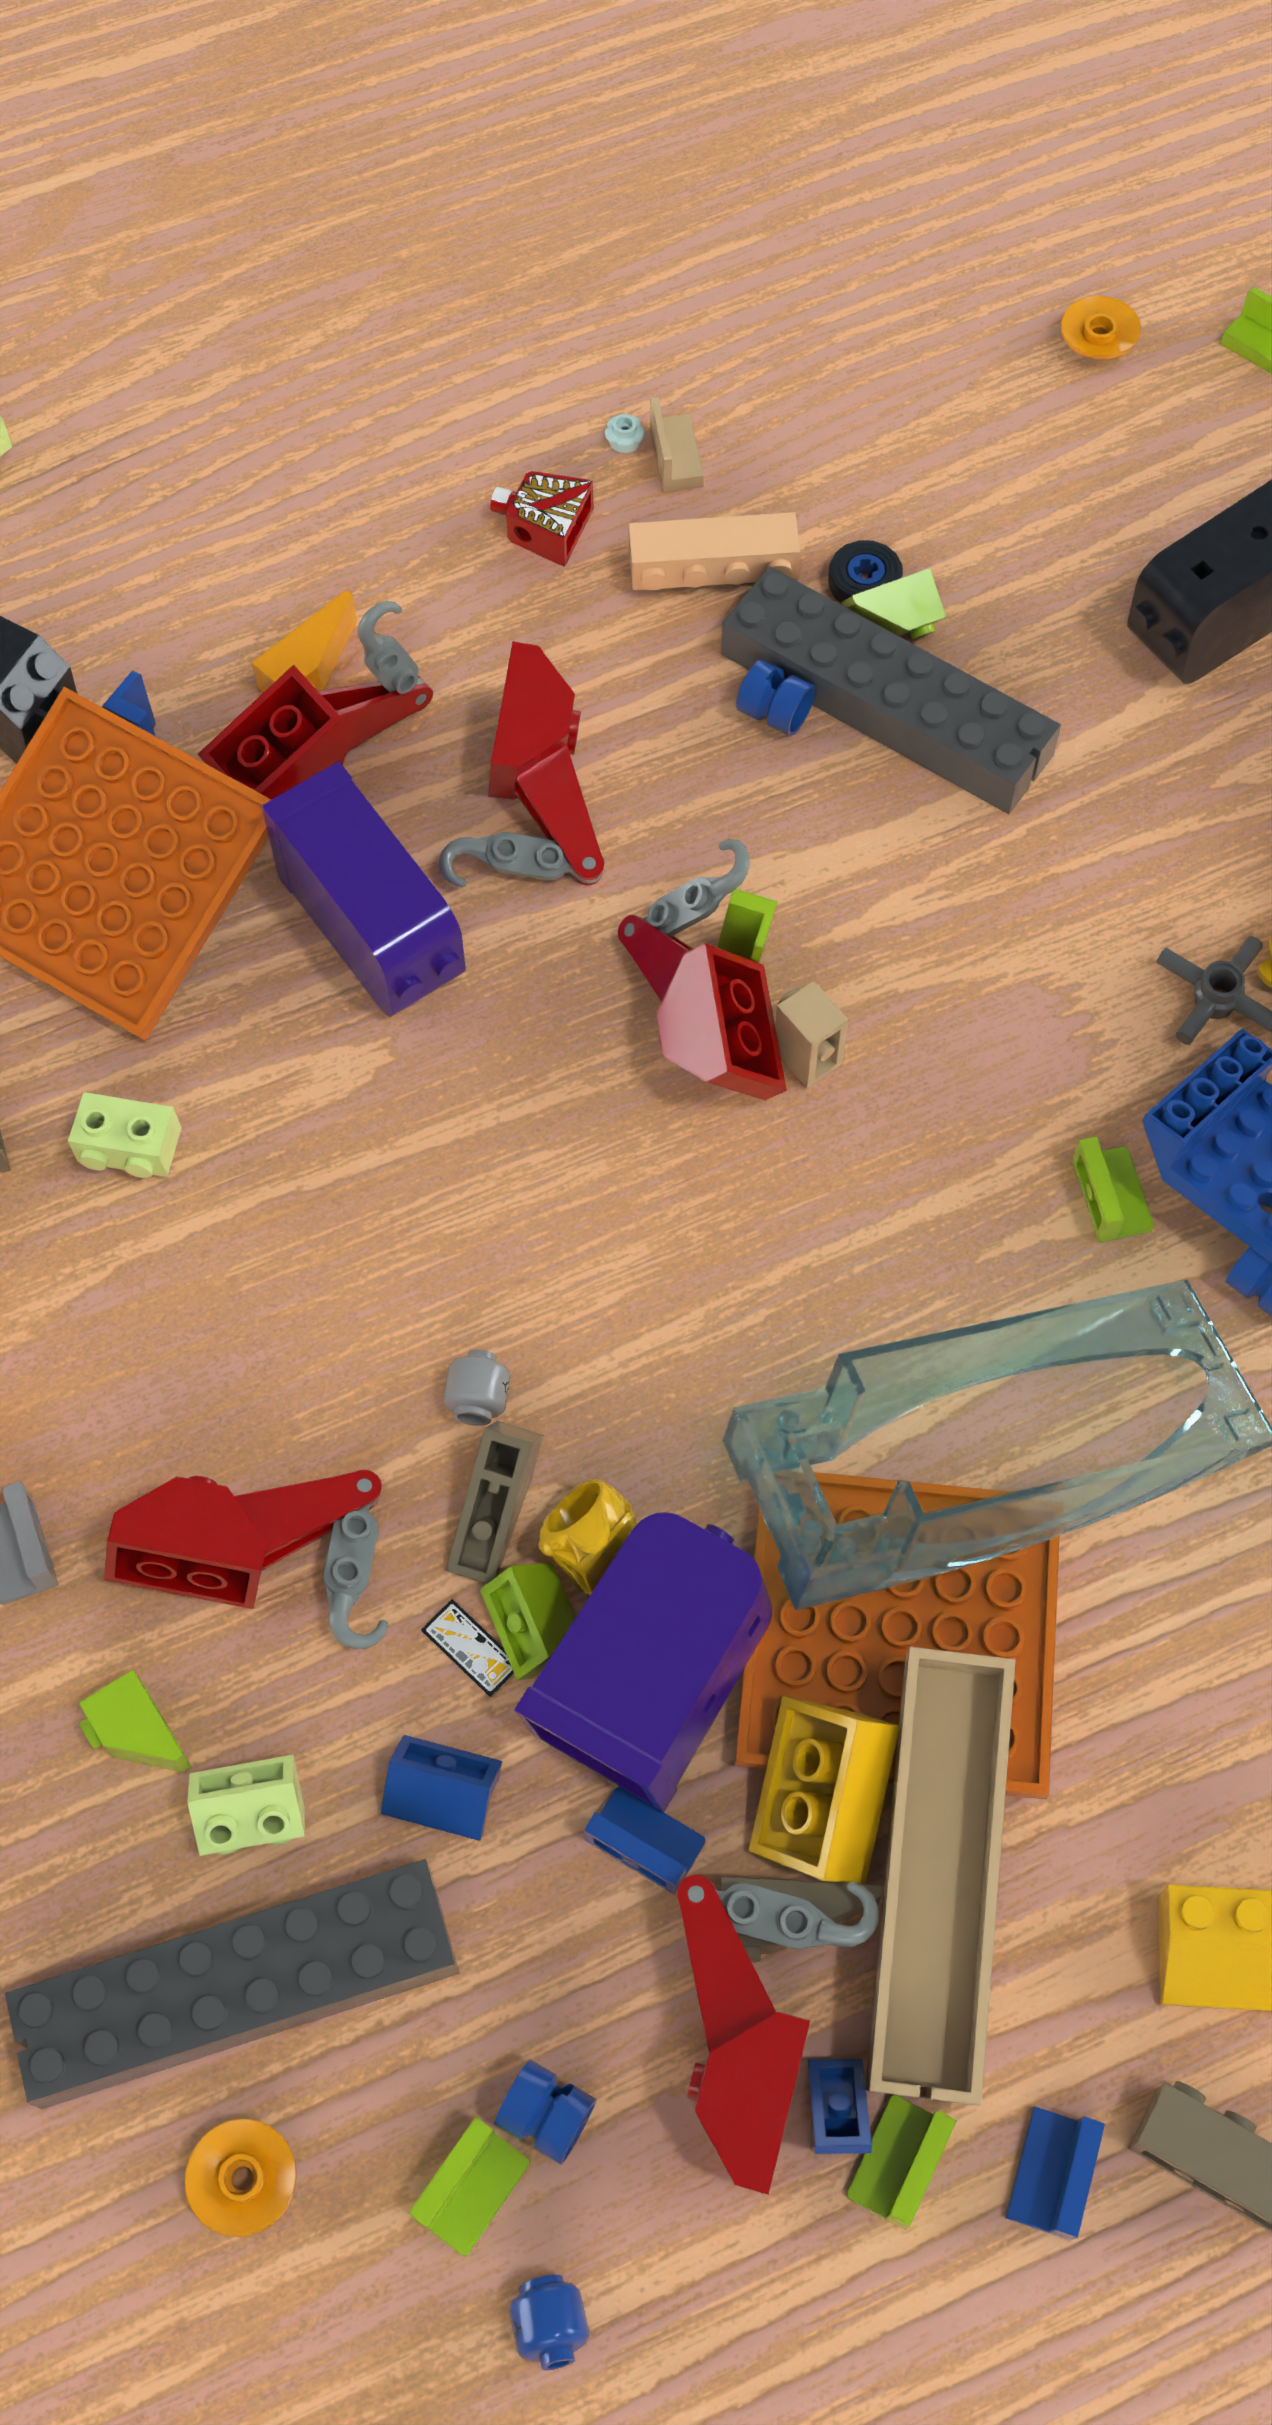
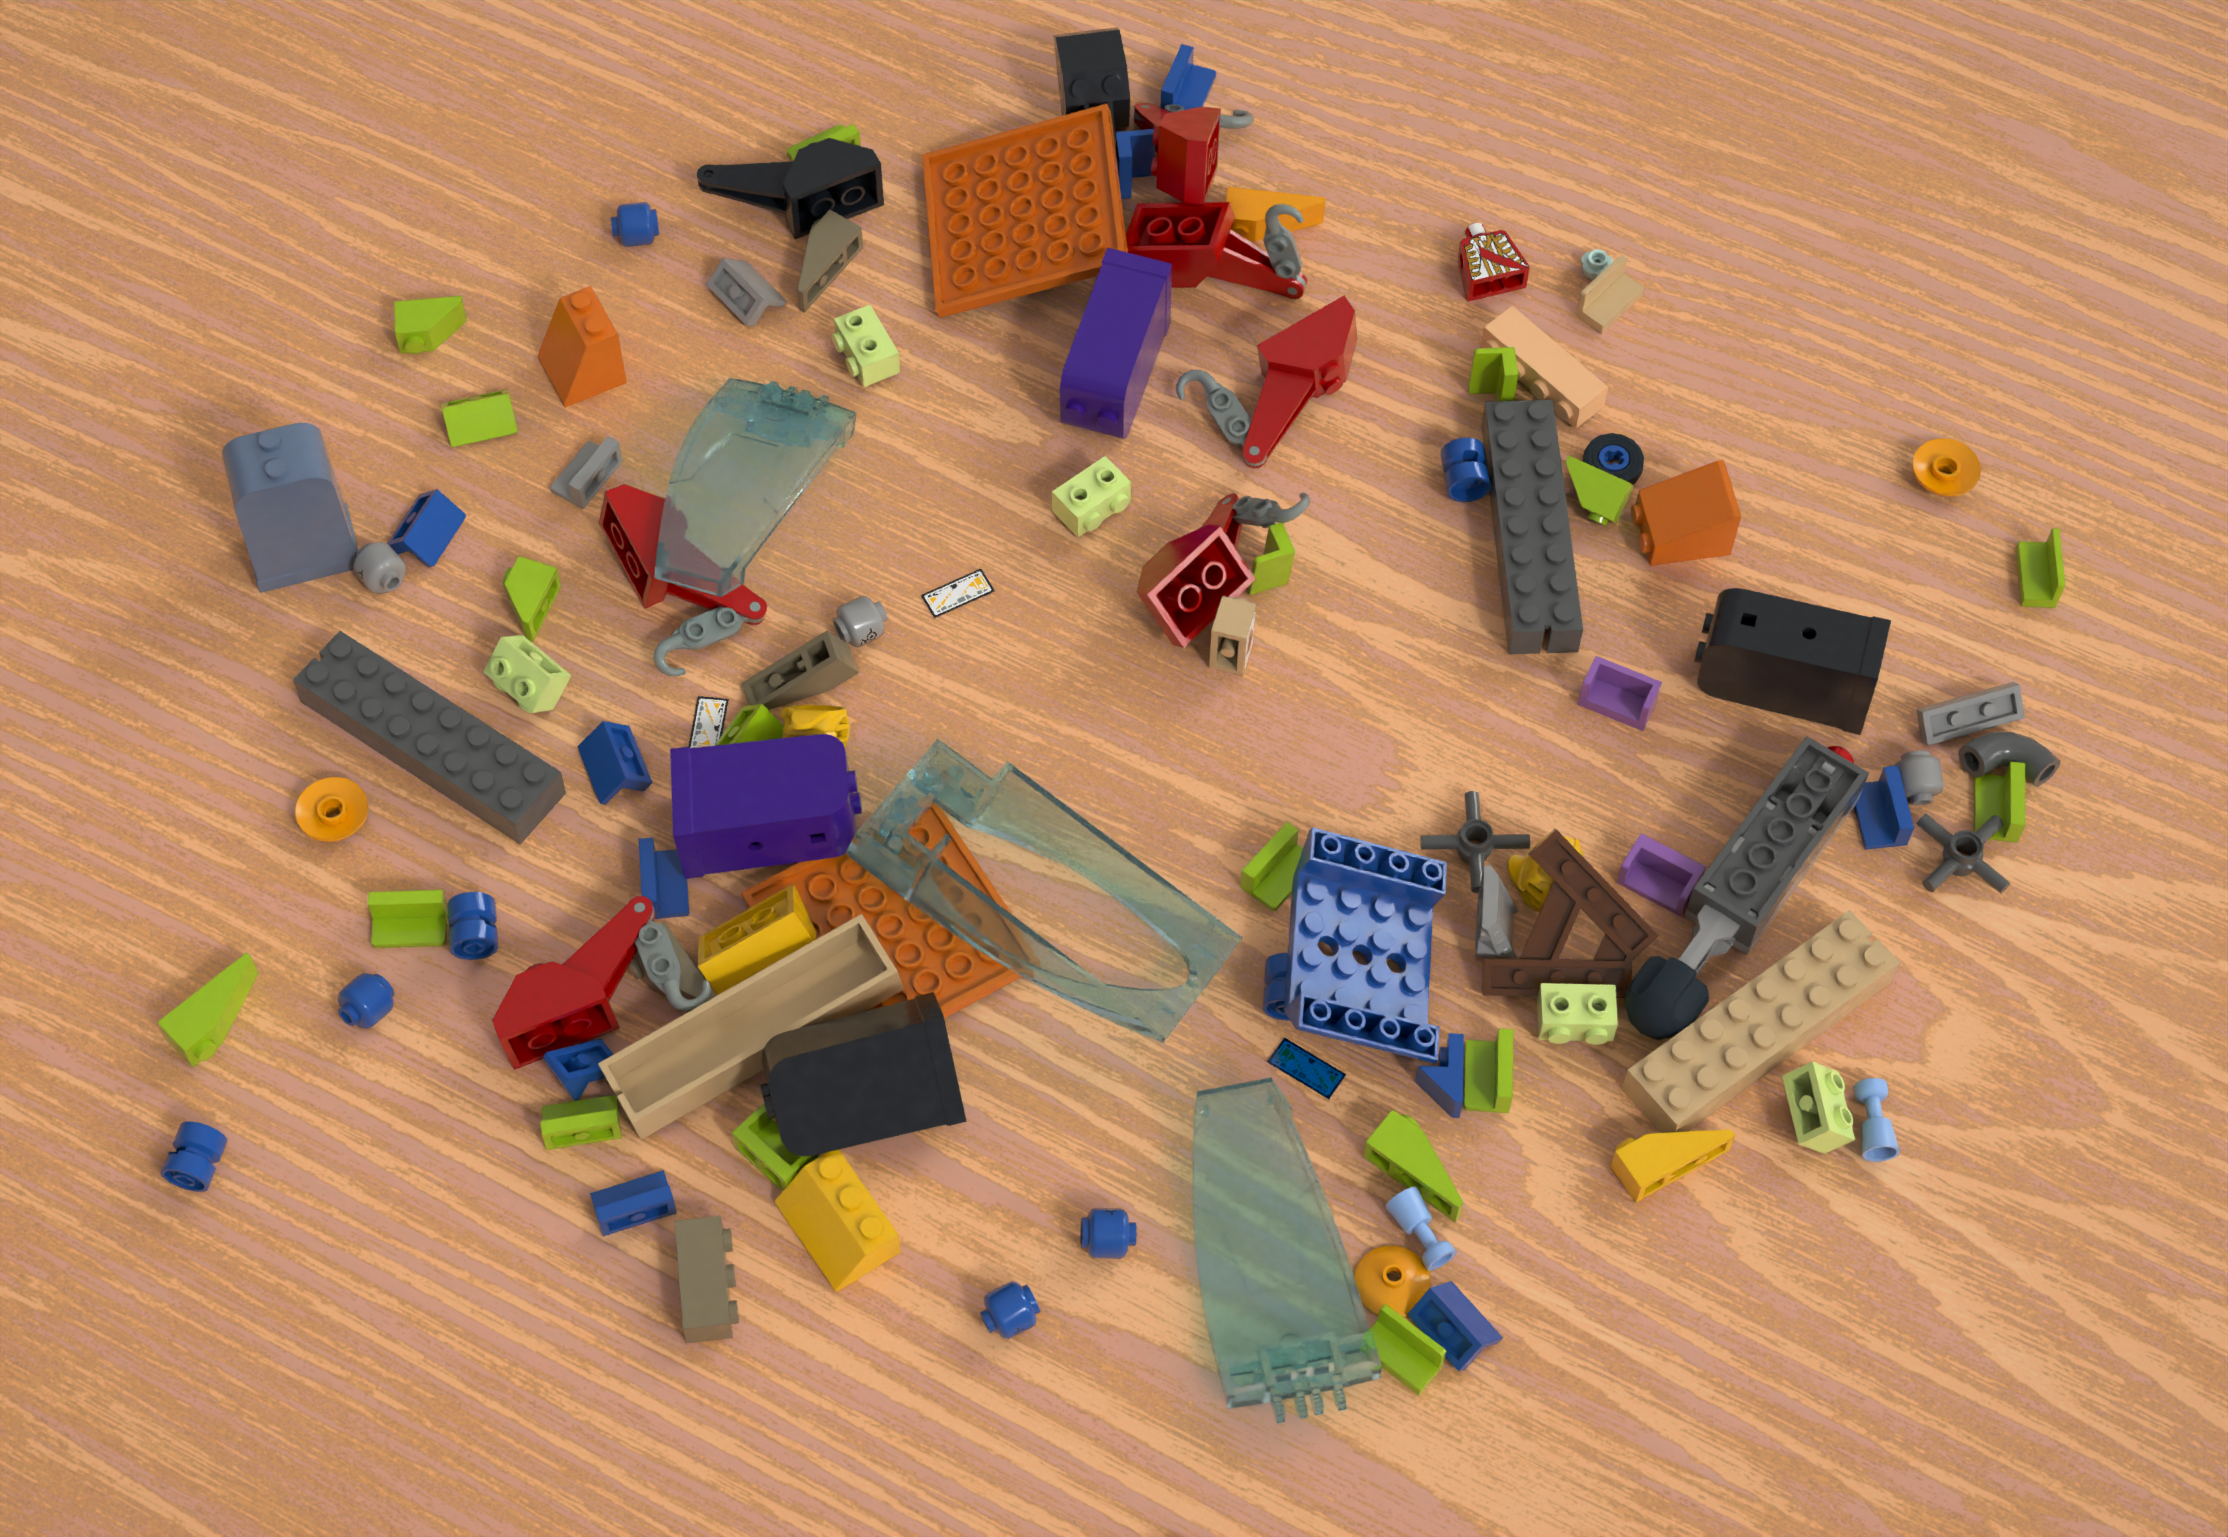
camera: 50 degrees right, 5 degrees down
(79, 619) = (1186, 82): none -> blue panel
(180, 654) = (1186, 146): none -> red slope
(211, 1381) = (740, 477): none -> clear light blue windscreen
(512, 1265) = (957, 593): none -> sticker
(517, 1049) = (1091, 496): none -> yellowish green brick
(700, 592) = (1494, 372): none -> lime panel
(993, 550) = (1688, 516): none -> orange slope
(1104, 1957) = (762, 1146): none -> lime panel
(1112, 1793) = (862, 1078): none -> black piece
(1144, 749) = (1619, 693): none -> medium lavender panel

